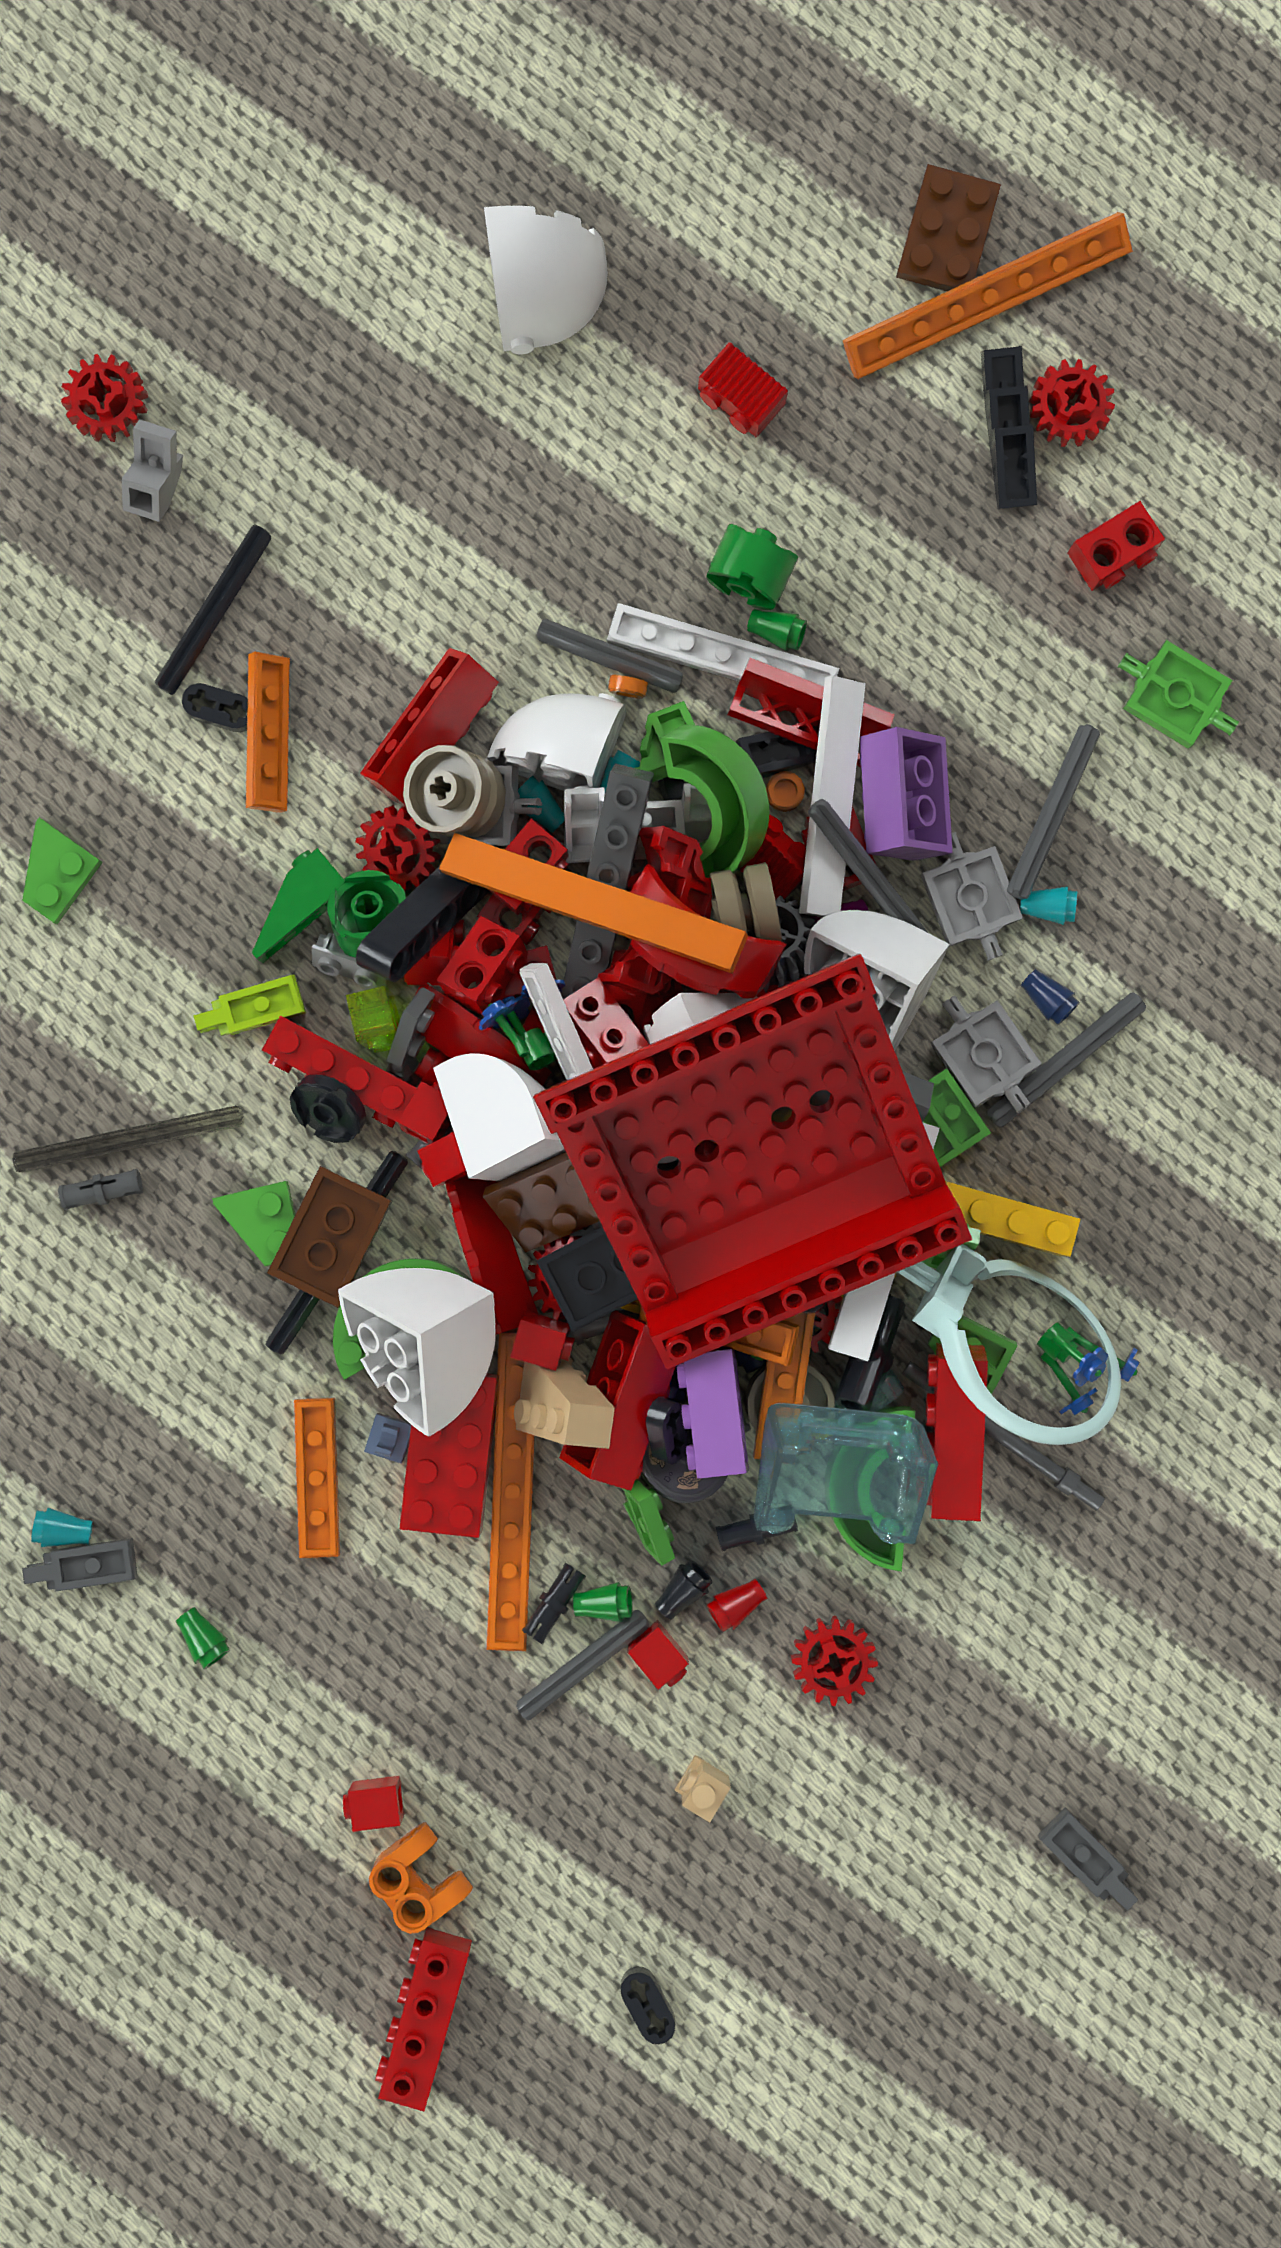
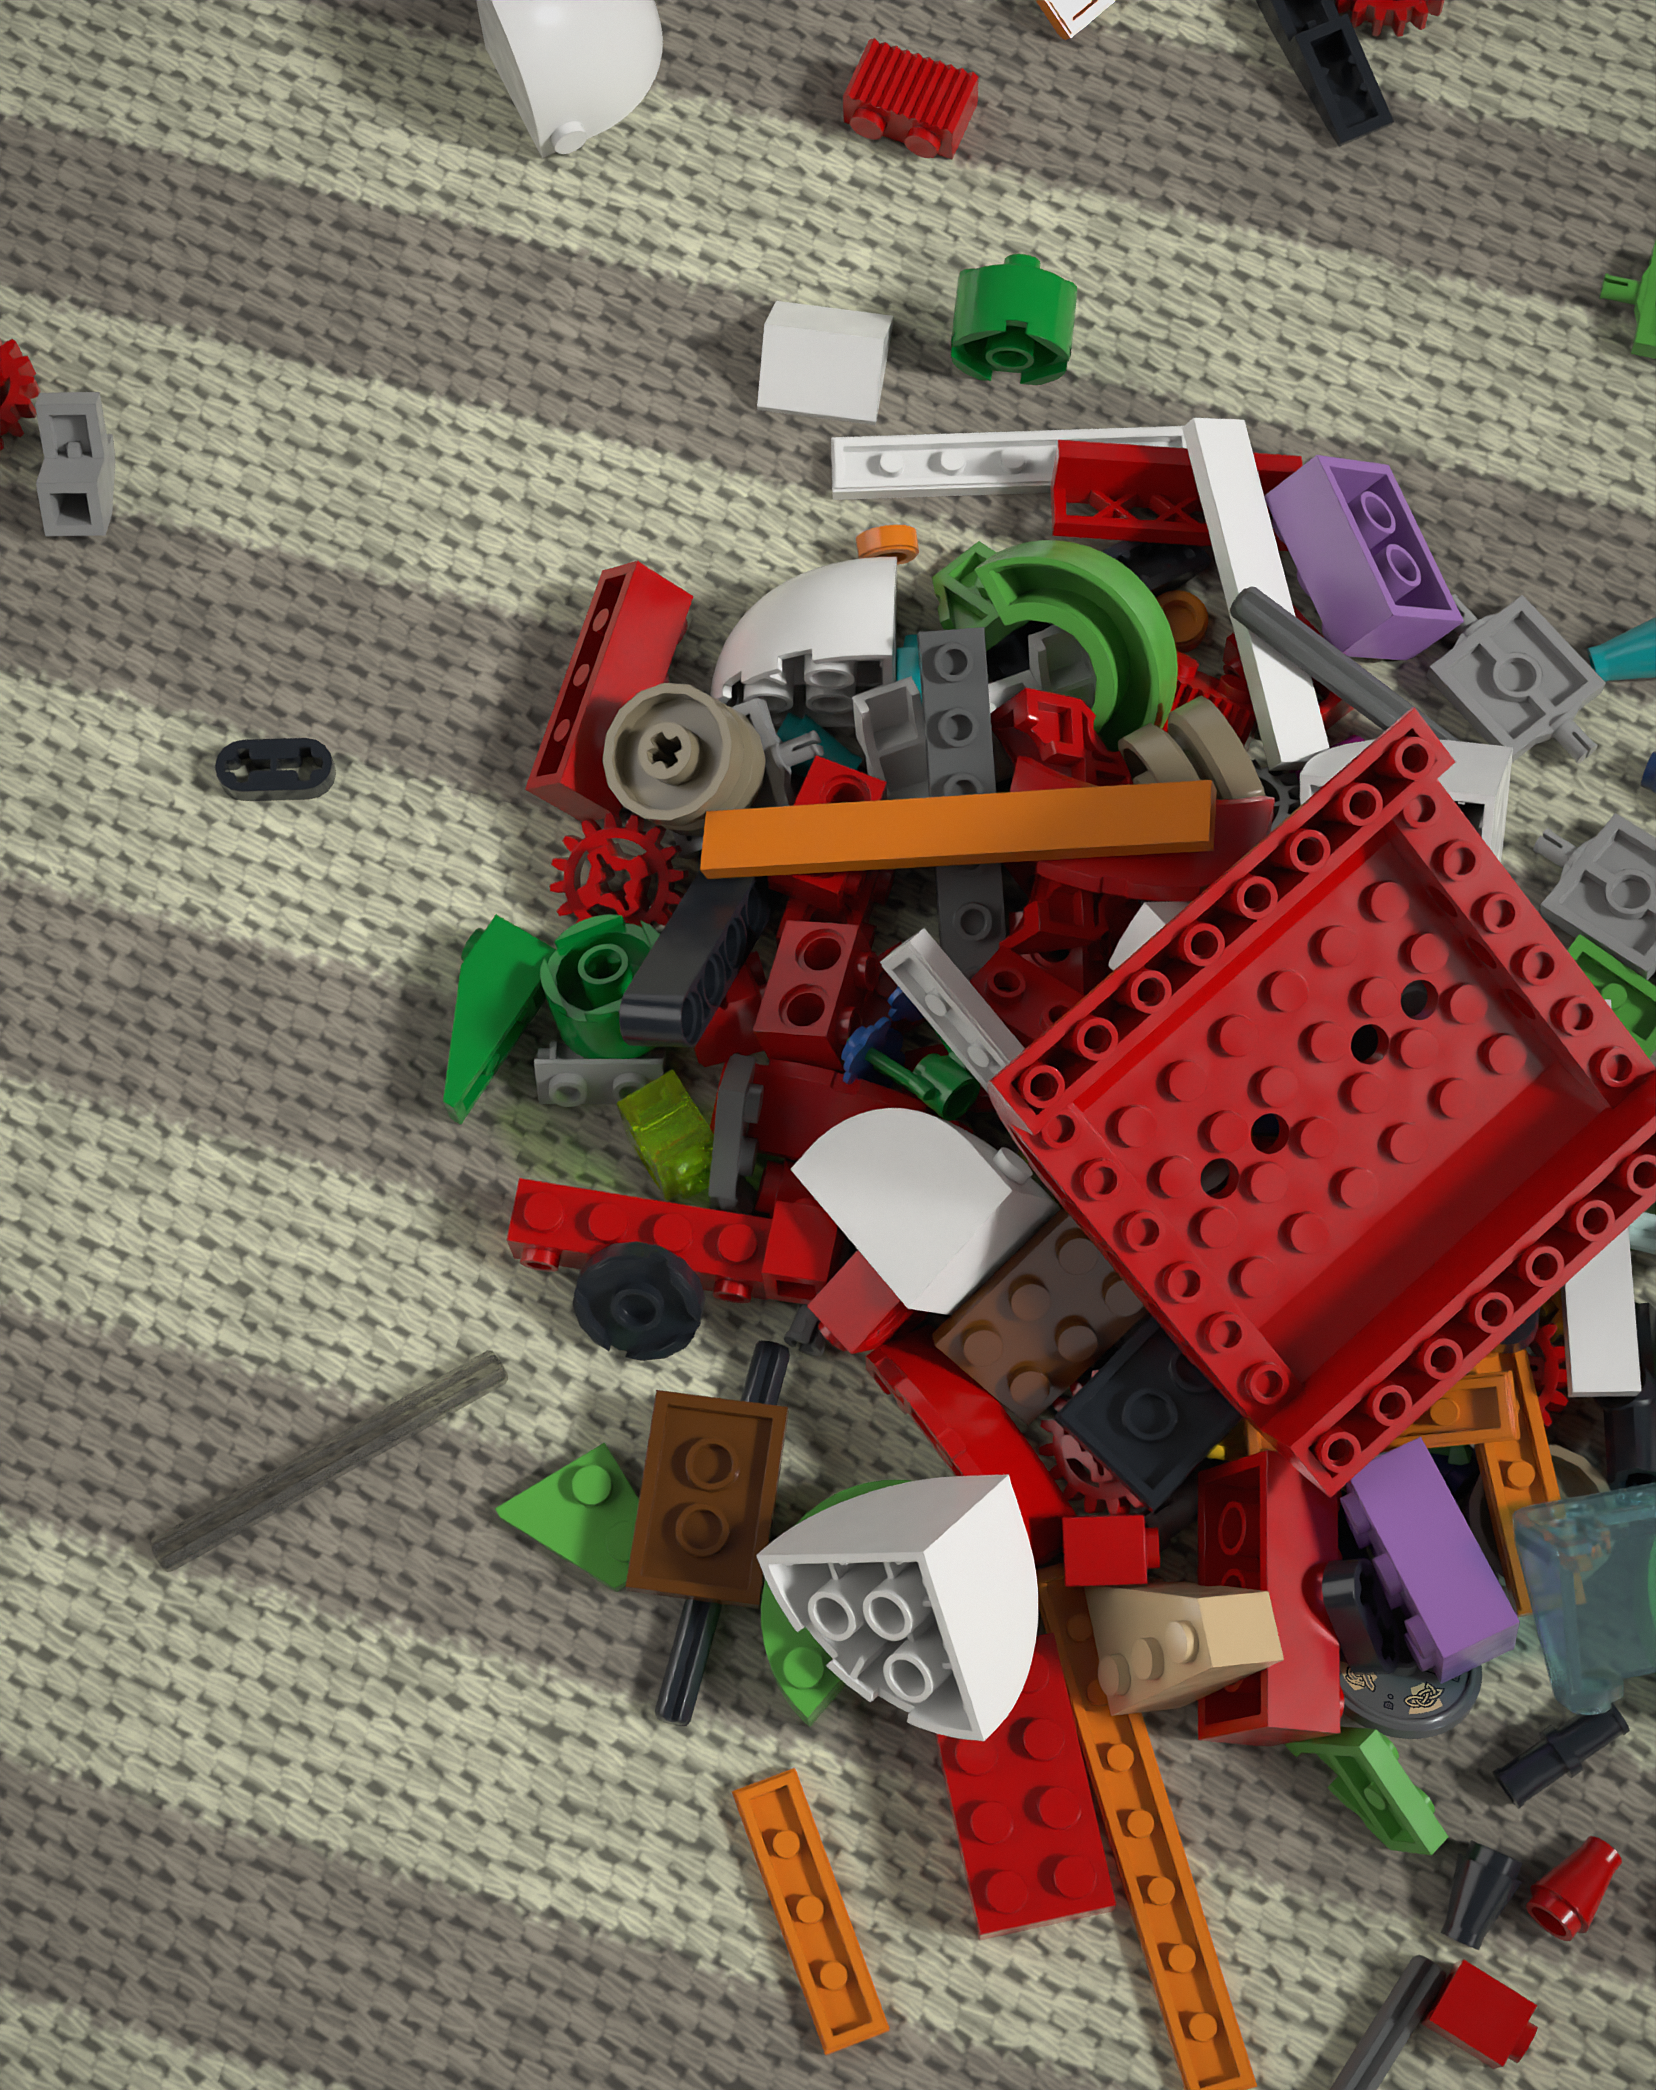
camera: 10 degrees left, 15 degrees down
(56, 872) = (94, 1088): bright green wing -> none
(100, 1189) = (309, 1553): dark grey pin -> none
(213, 609) = (223, 636): black axle -> none
(253, 1007) = (465, 1191): lime hinge -> none
(267, 732) = (363, 780): orange tile -> none
(388, 1438) = (908, 1804): sand blue tile -> none
(553, 1603) = (1275, 1986): black pin -> none
(606, 1603) = (1358, 1958): green cone -> none
(609, 655) = (841, 513): dark grey axle -> none
(631, 549) = (823, 362): none -> white slope
(778, 628) = (1082, 398): green cone -> none
(1053, 812) = (1589, 523): dark grey axle -> none
(1111, 542) = (1524, 136): red brick -> none

